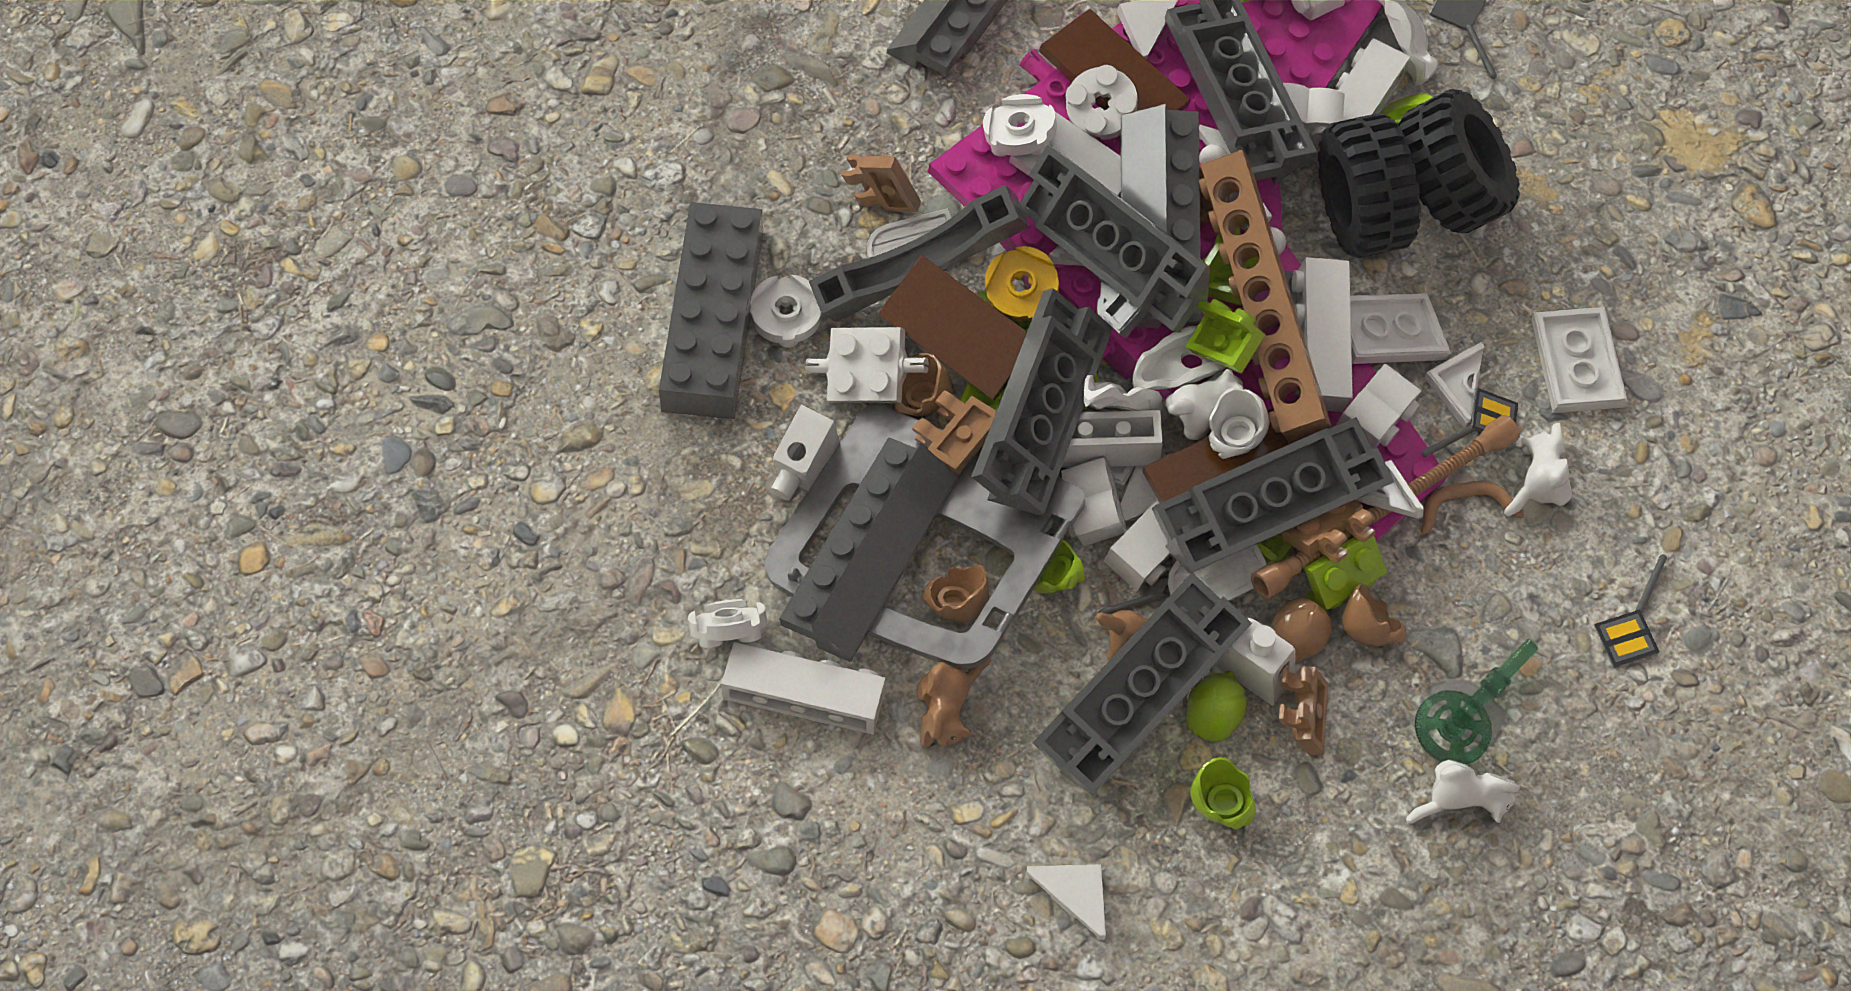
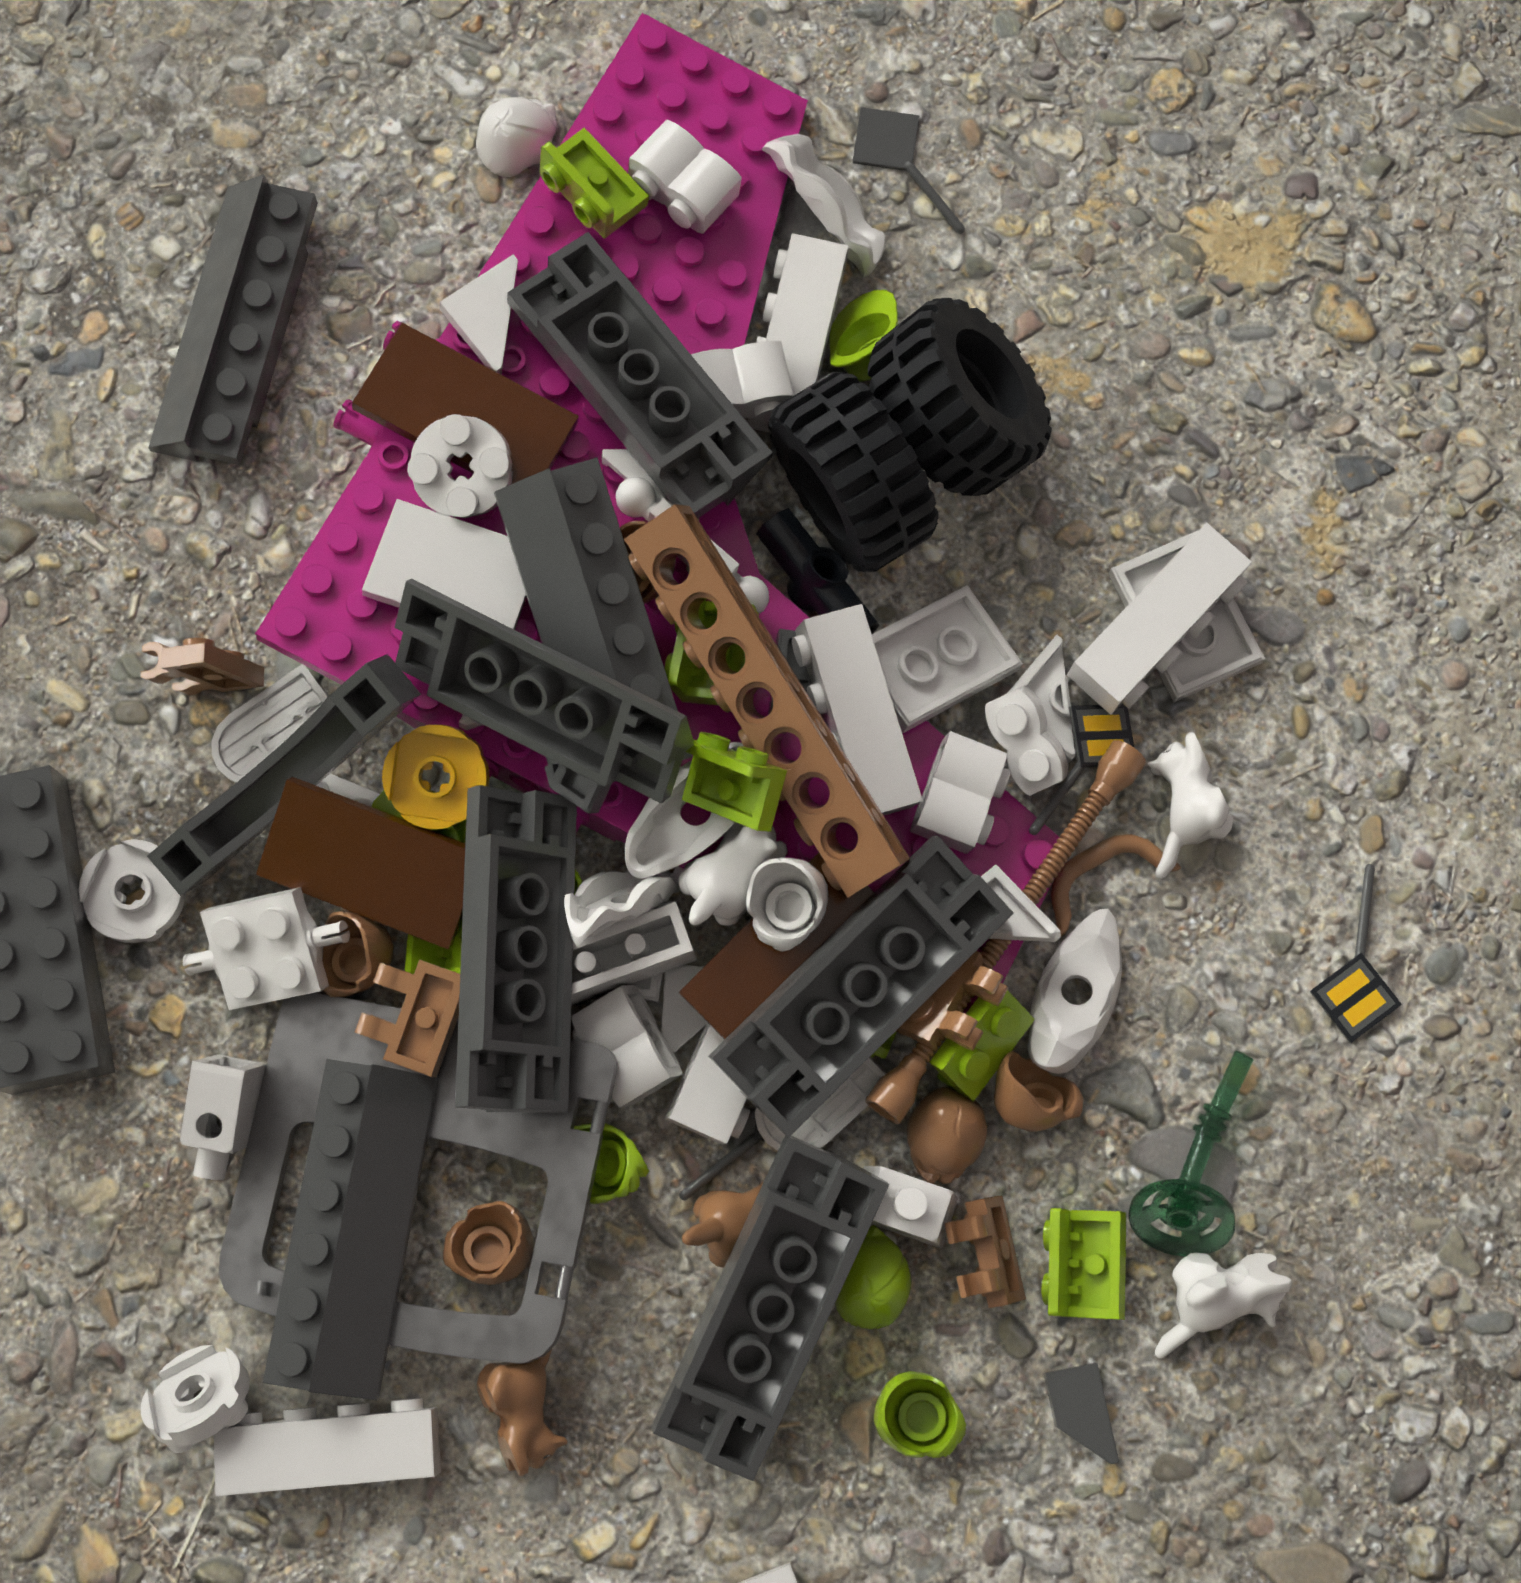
camera: 20 degrees left, 15 degrees up
(1007, 138) = (375, 566): white plate -> none
(1314, 236) = (814, 571): none -> black piece
(1341, 835) = (1081, 1408): none -> dark grey tile
(1373, 740) = (1085, 1264): none -> lime bracket
(1406, 587) = (1065, 1030): none -> white piece
(1438, 389) = (1032, 752): none -> white brick
(1557, 348) = (1159, 618): none -> white brick

